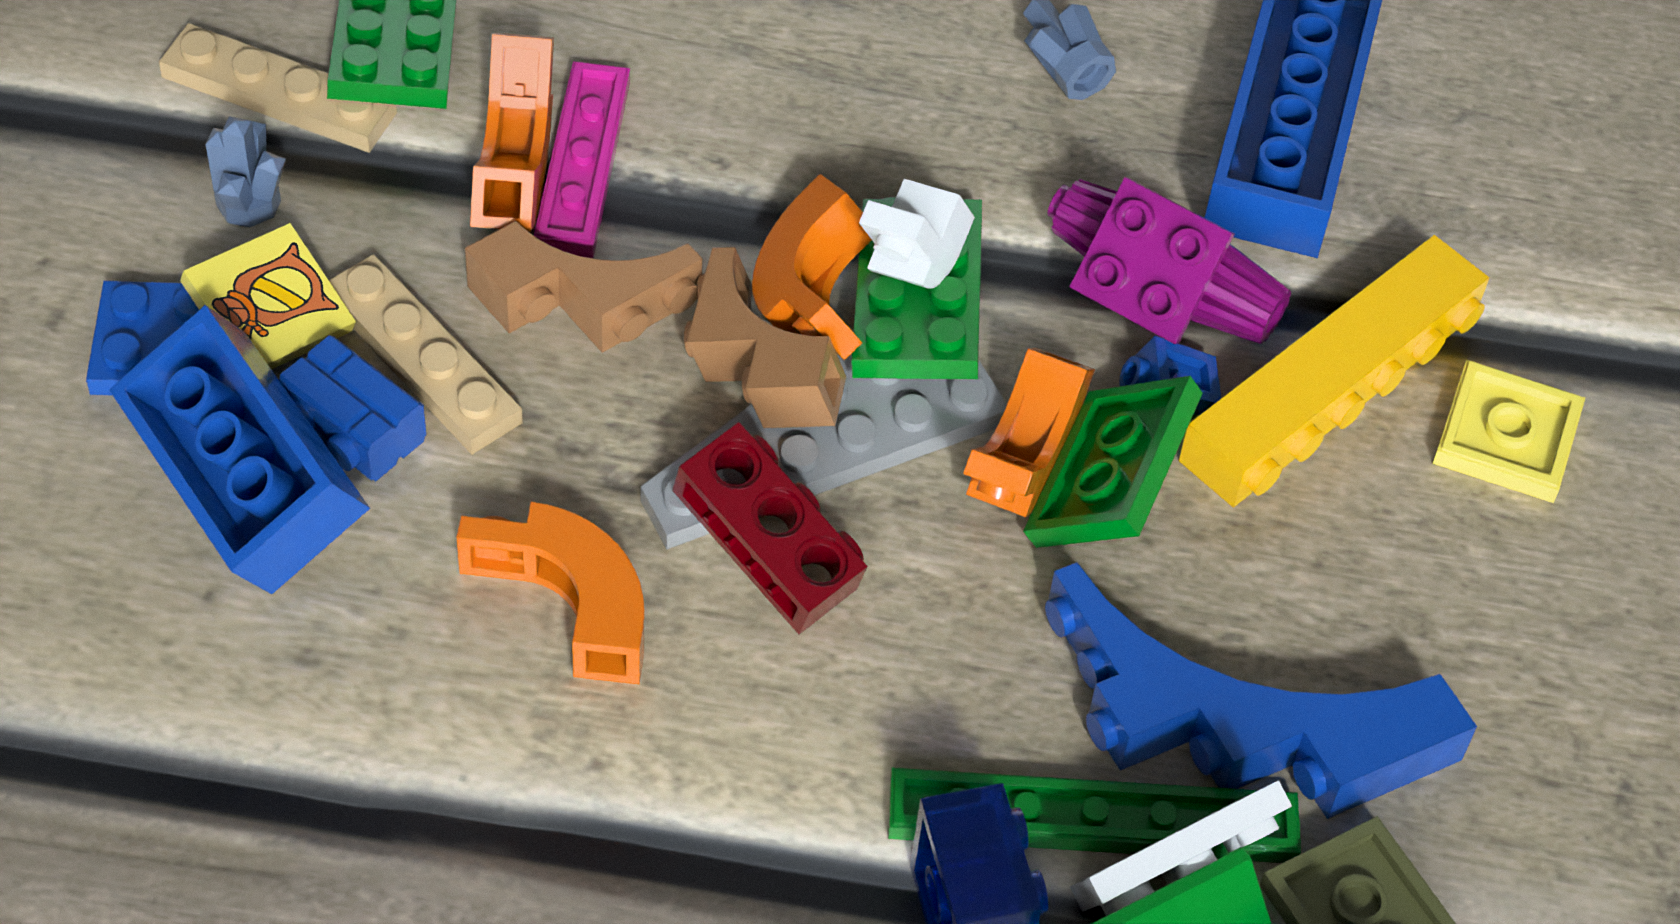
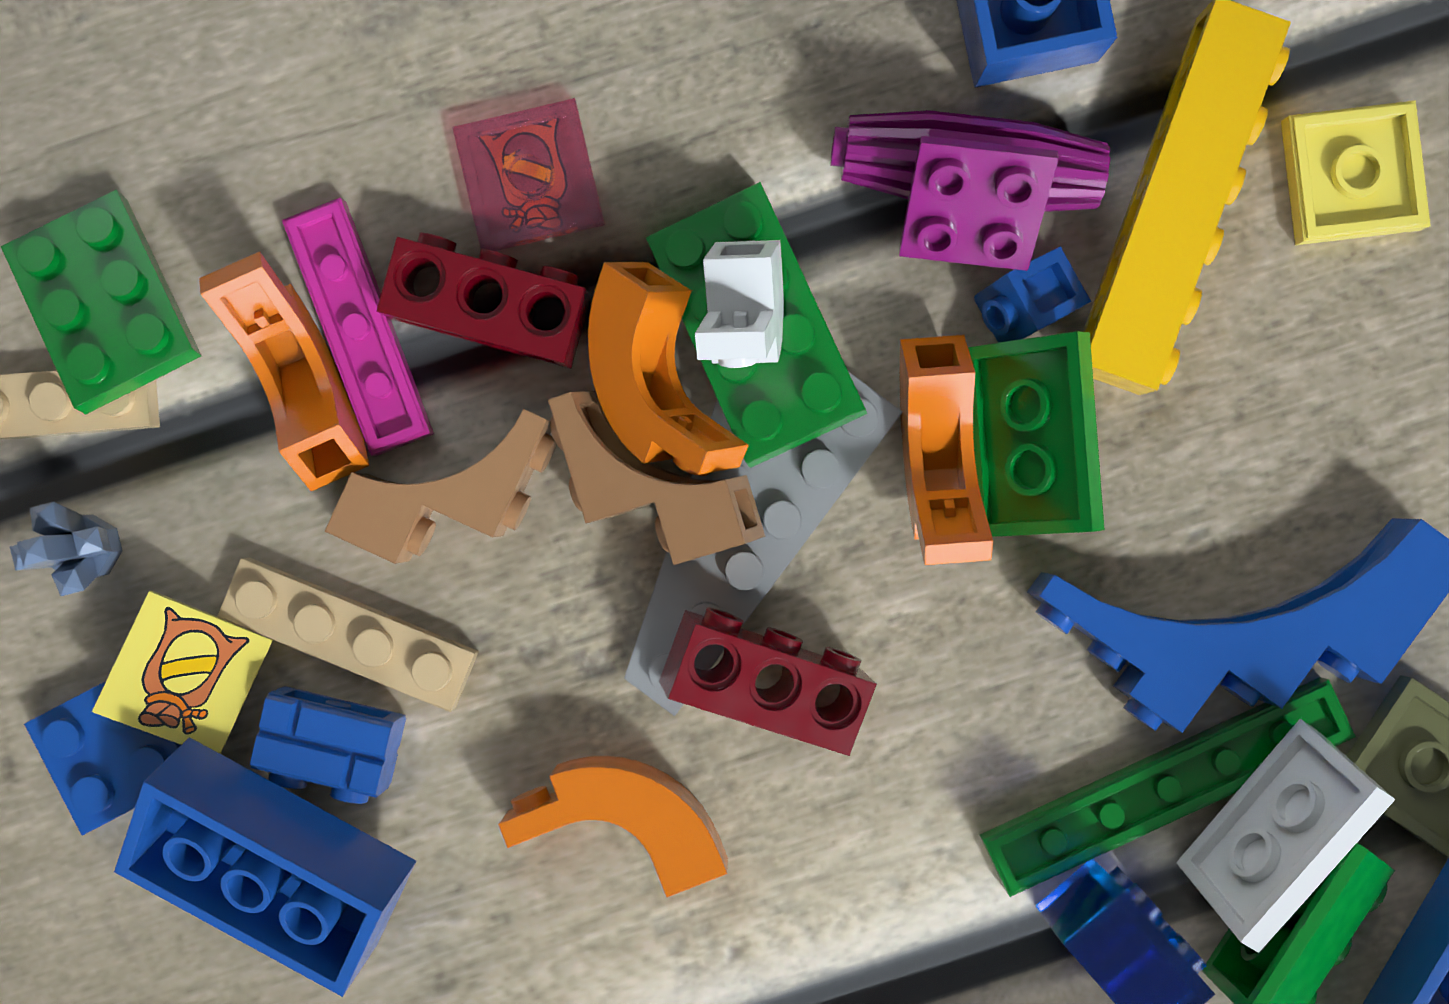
camera: 20 degrees left, 35 degrees up
(699, 176) = (452, 309): none -> dark red brick
(791, 125) = (528, 175): none -> clear pink tile

